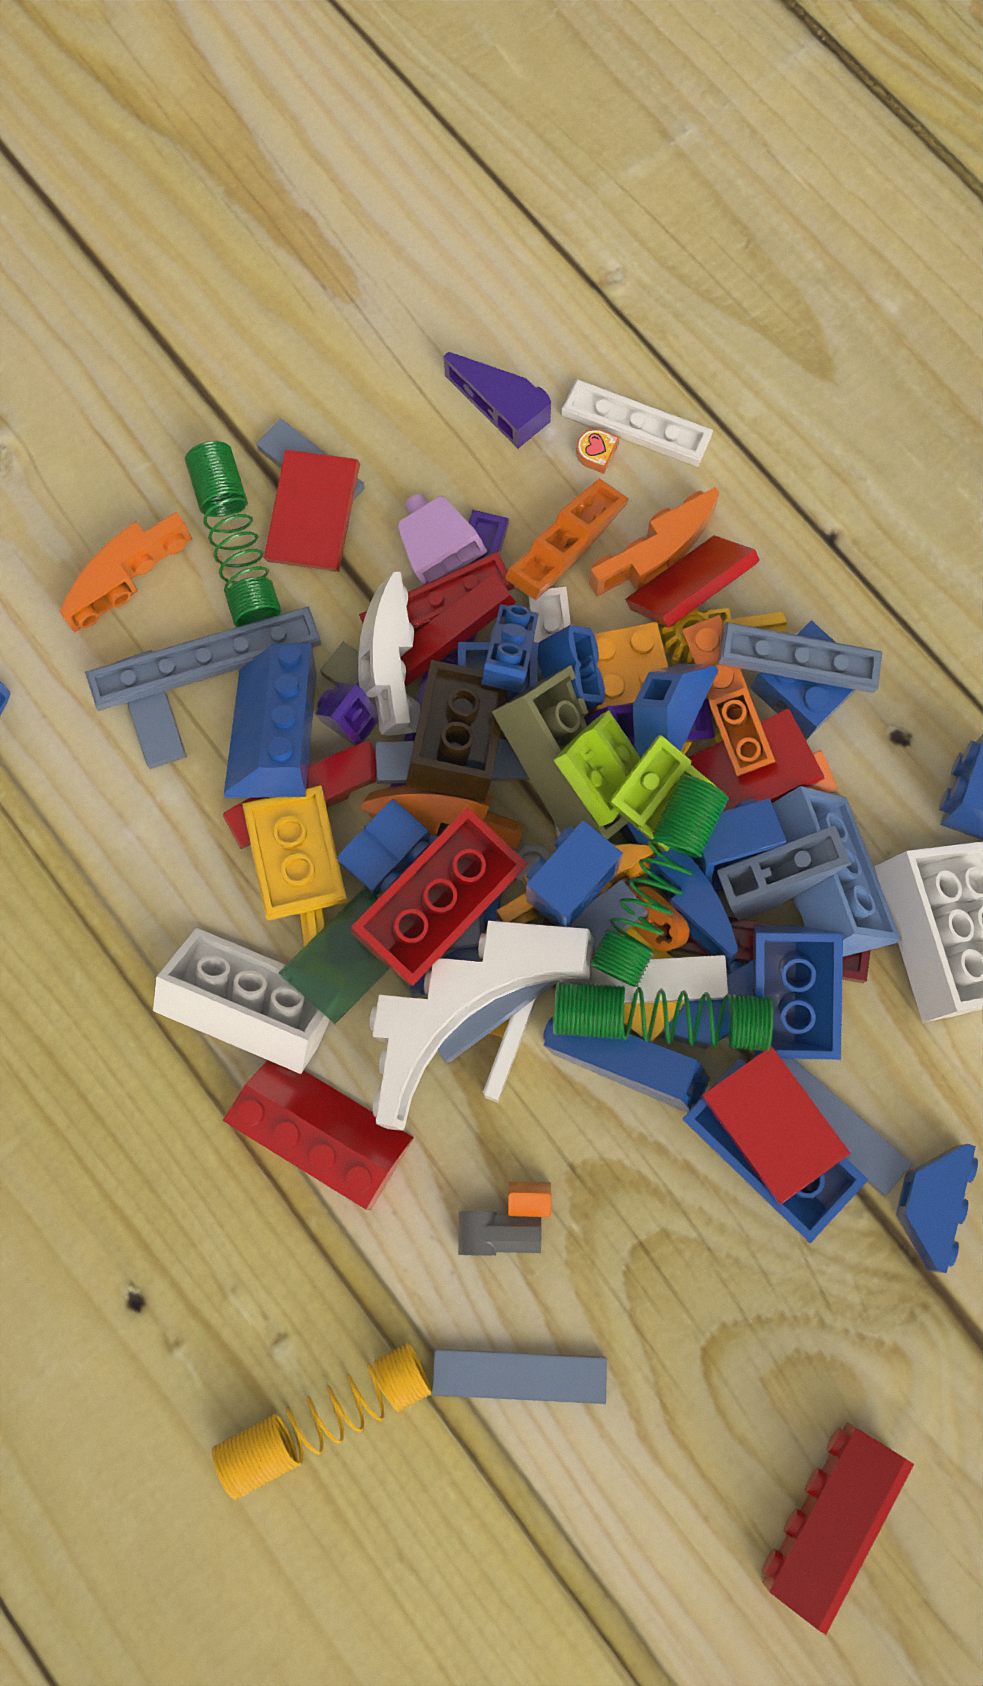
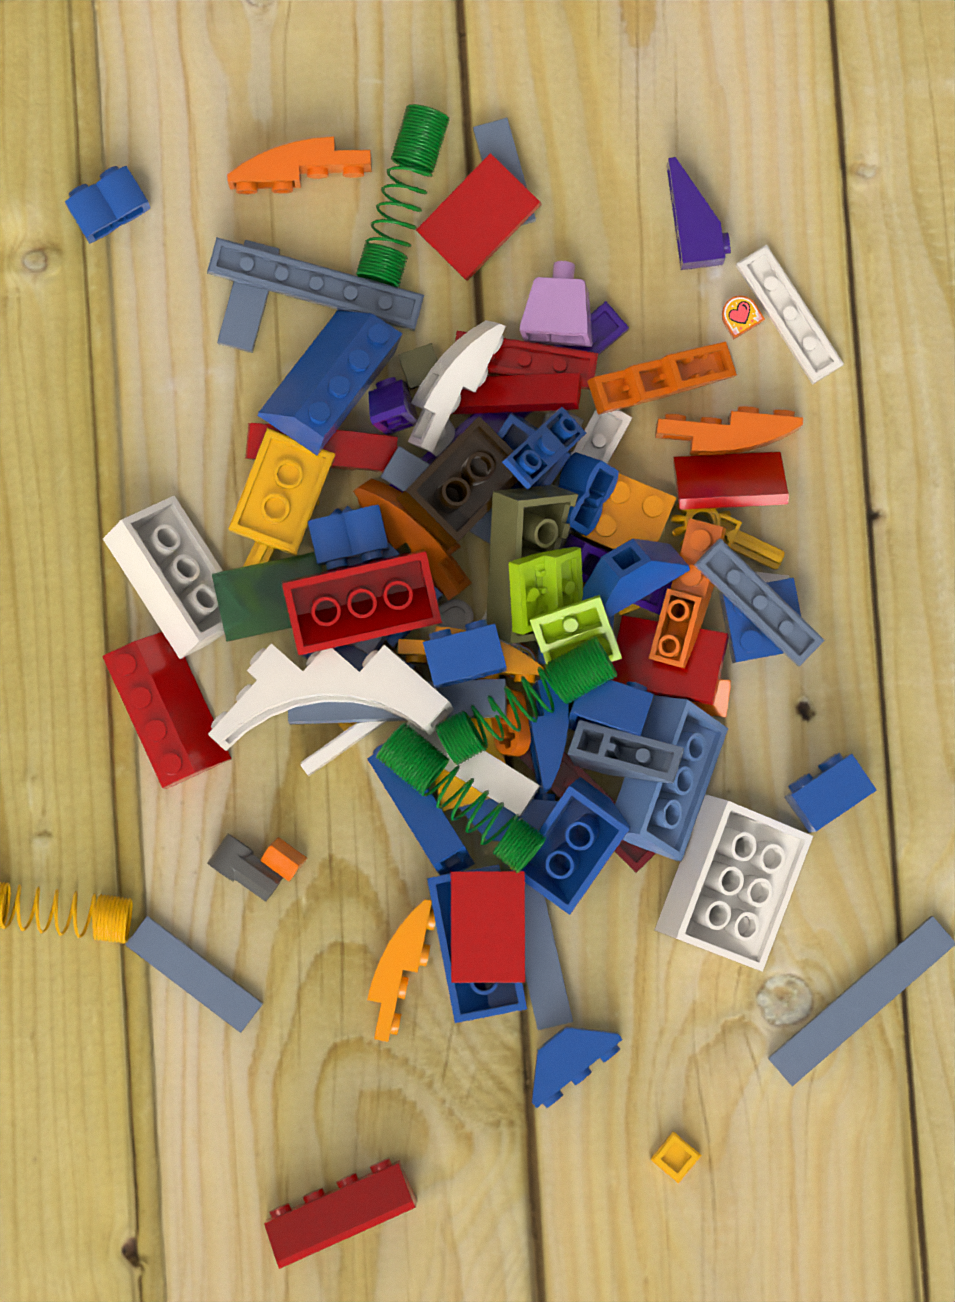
camera: 30 degrees right, 10 degrees up
(706, 1210) = (403, 952): none -> light orange slope

